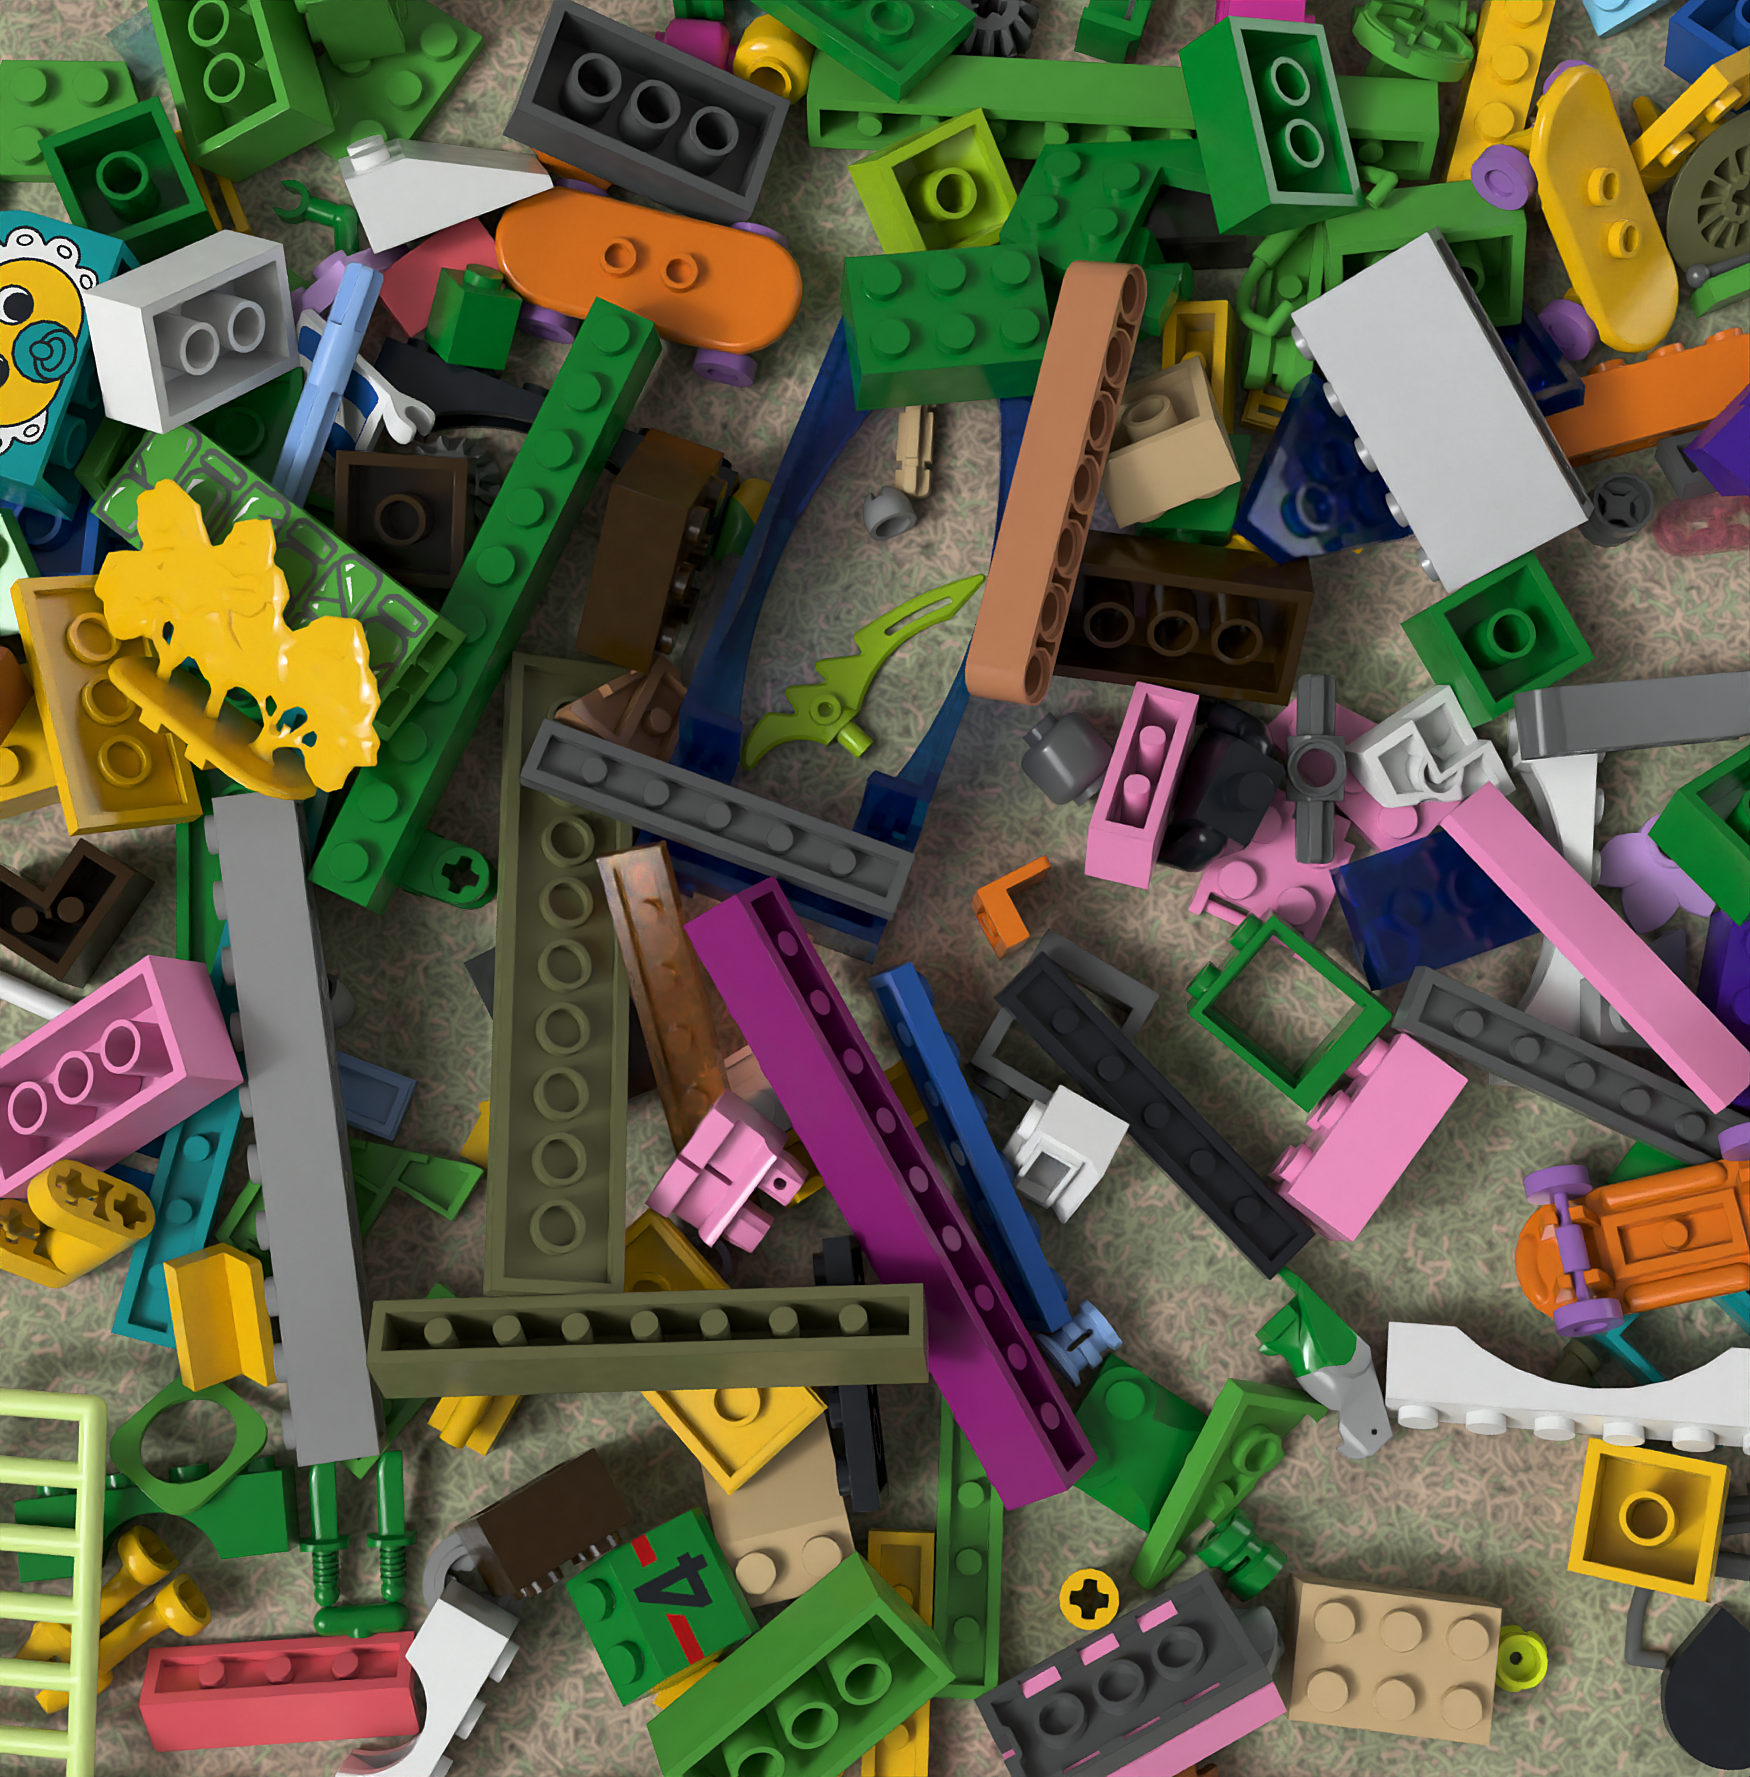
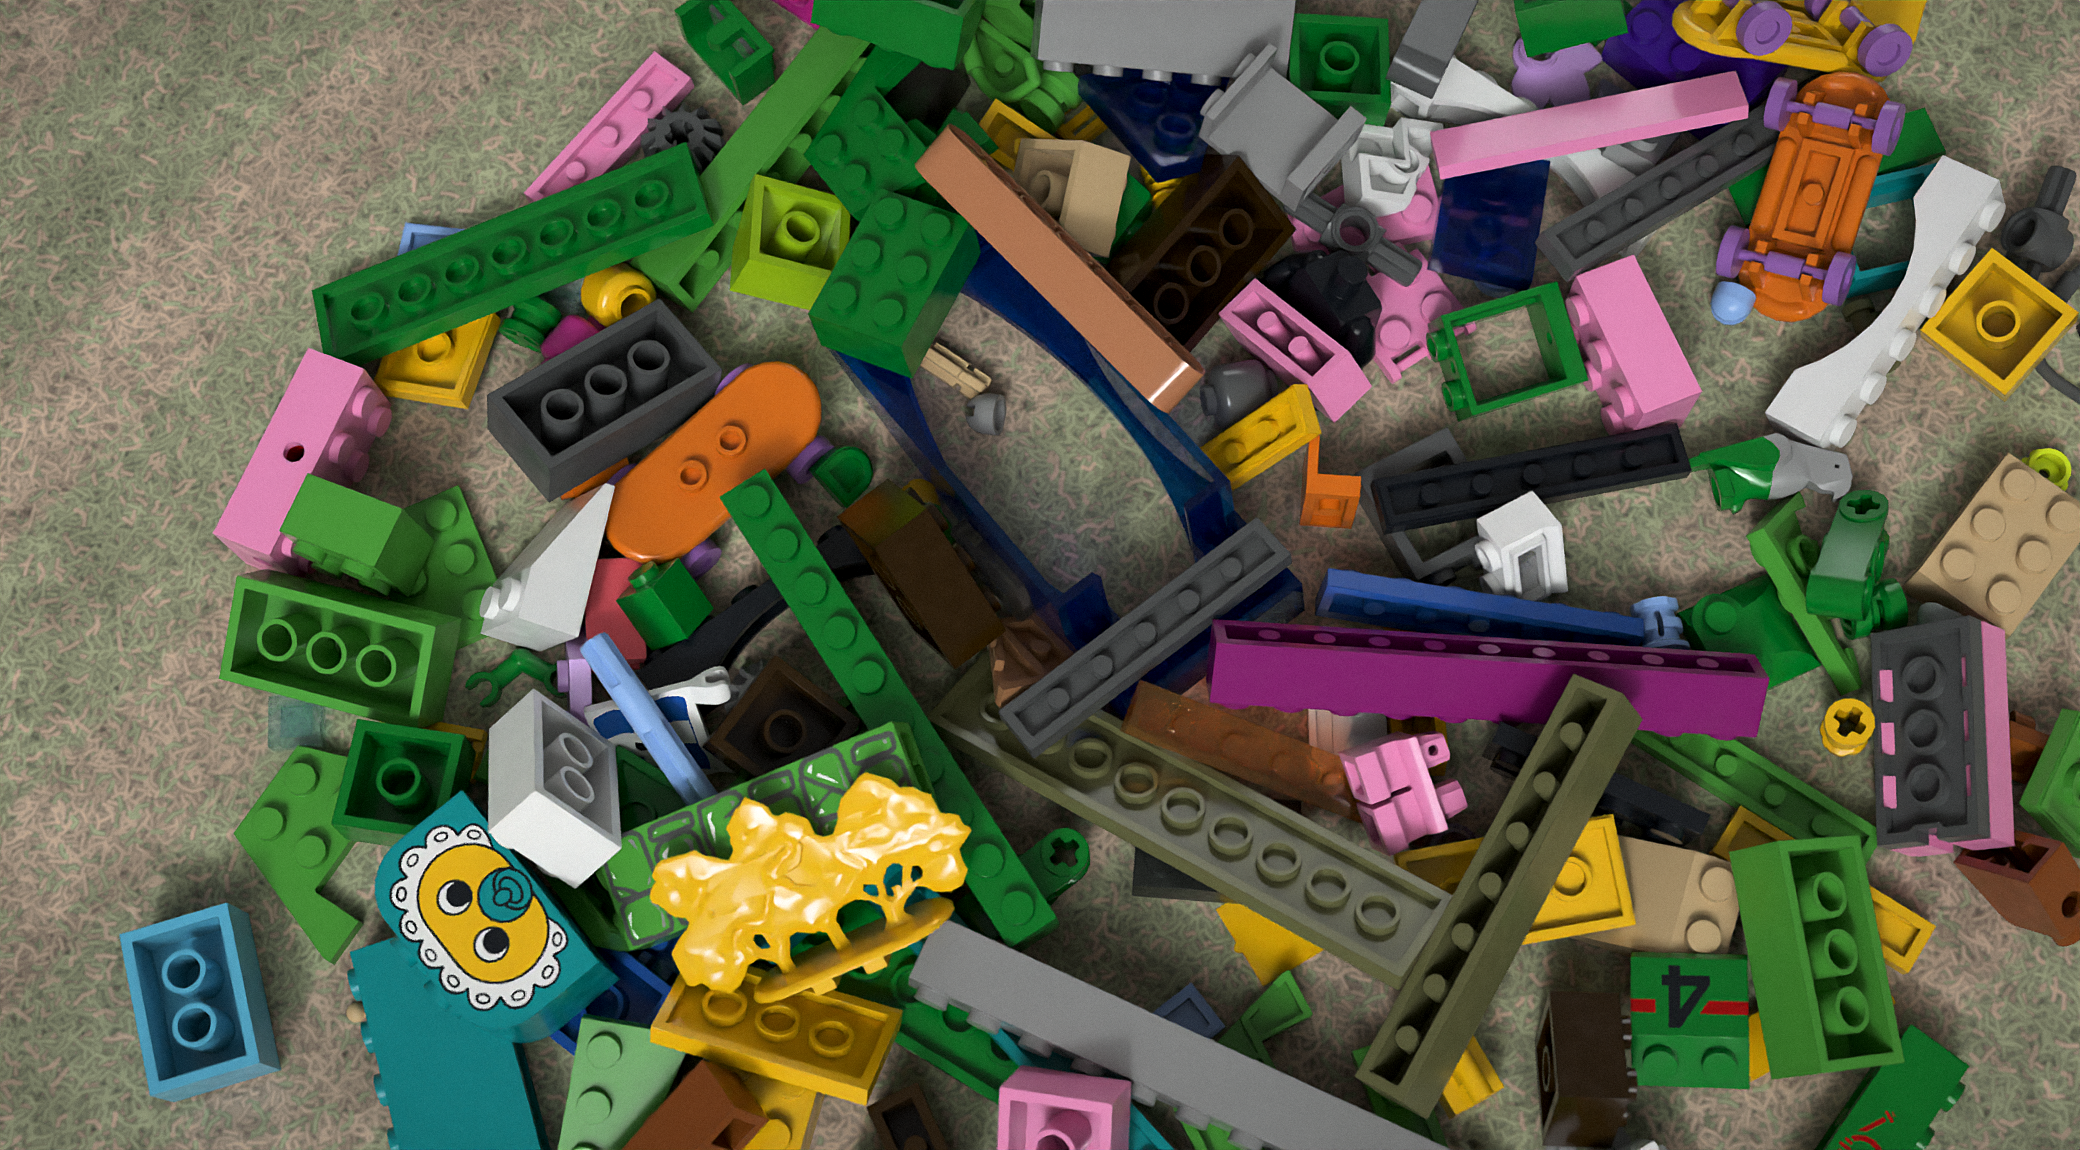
camera: 45 degrees left, 10 degrees down
(732, 408) = (843, 473): none -> green tile
(828, 709) = (1099, 534): lime piece -> none
(1015, 807) = (1265, 436): none -> yellow tile
(1273, 1503) = (1850, 558): none -> green piece
(1375, 615) = (1277, 129): none -> light grey panel
(1502, 1216) = (1731, 302): none -> light blue hinge

